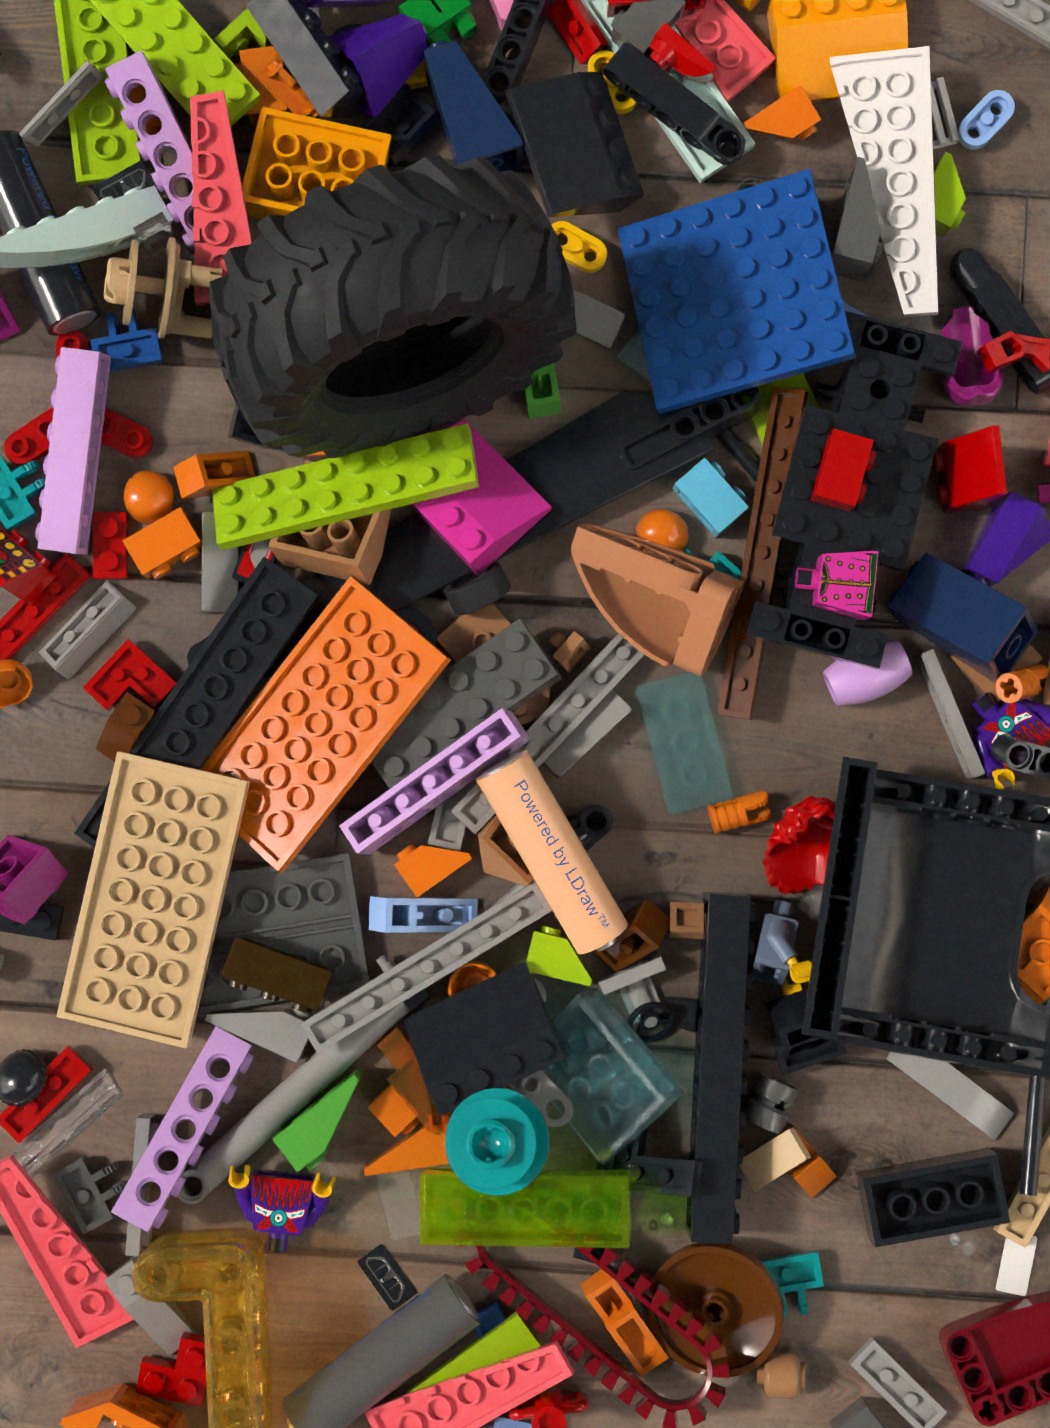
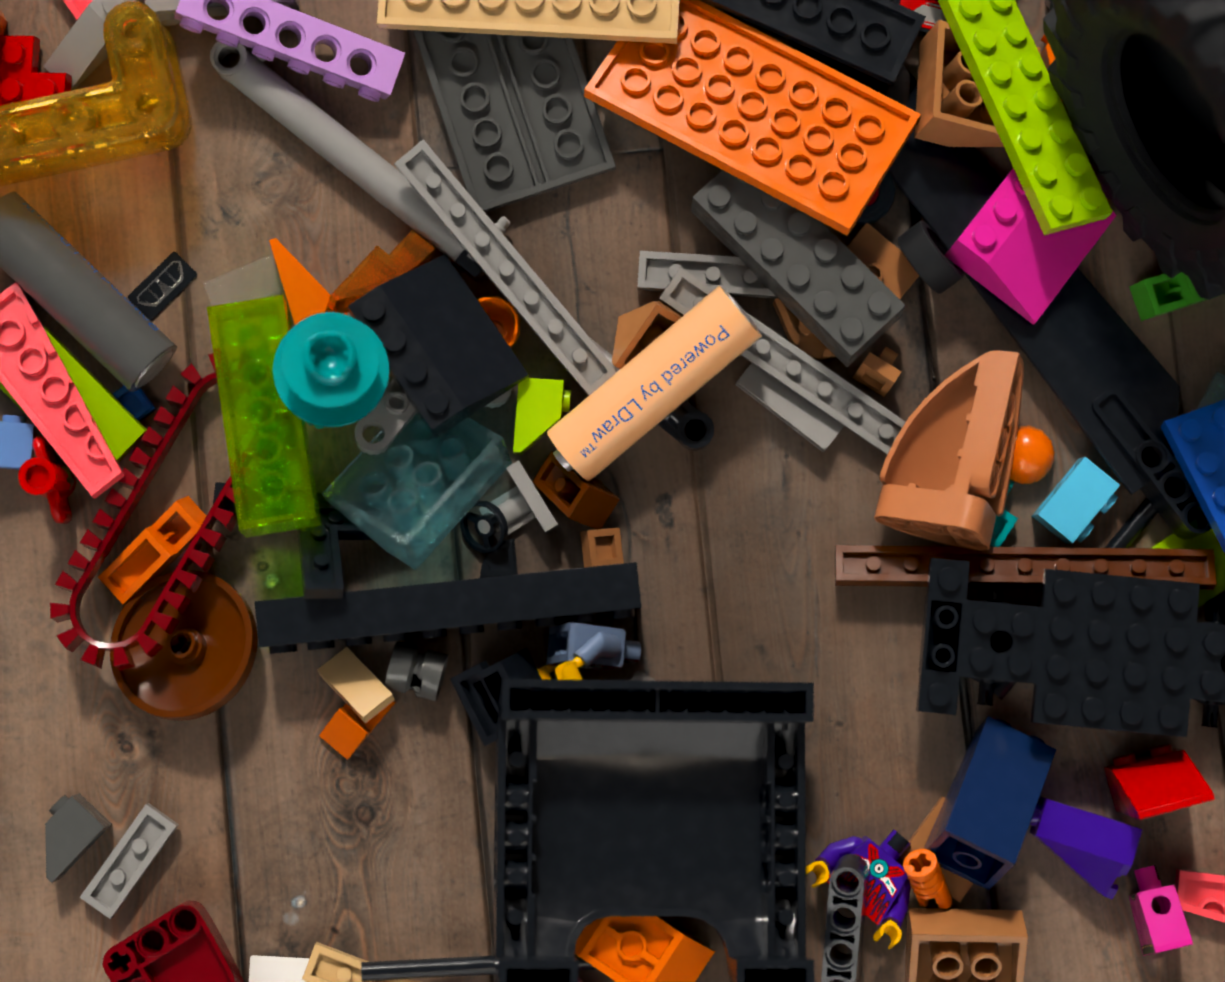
camera: 85 degrees right, 0 degrees up
(269, 1028) = (410, 111): light grey slope -> none
(277, 974) = (471, 109): dark brown brick -> none
(280, 1202) = (226, 155): torso -> none
(310, 1132) = (312, 179): bright green slope -> none
(393, 1112) = (341, 260): orange brick -> none
(419, 914) = (562, 254): light blue slope -> none
(428, 865) = (615, 256): orange slope -> none
(434, 782) = (709, 244): lavender brick -> none
(684, 742) = (797, 516): clear light blue tile -> none
(739, 811) = (731, 588): orange hinge -> none
(782, 1375) = (123, 730): medium nougat head -> none
(796, 1273) = (234, 728): teal hinge -> none
(800, 846) = (704, 654): red hair -> none
(842, 582) = (1007, 651): dark pink torso -> none
(843, 470) = (1133, 632): red brick -> none
(859, 684) = (895, 697): lavender piece -> none
(932, 1197) = (342, 866): black brick -> none
(950, 714) = (878, 805): light grey tile -> none
(956, 1092) = (461, 876): light grey slope -> none

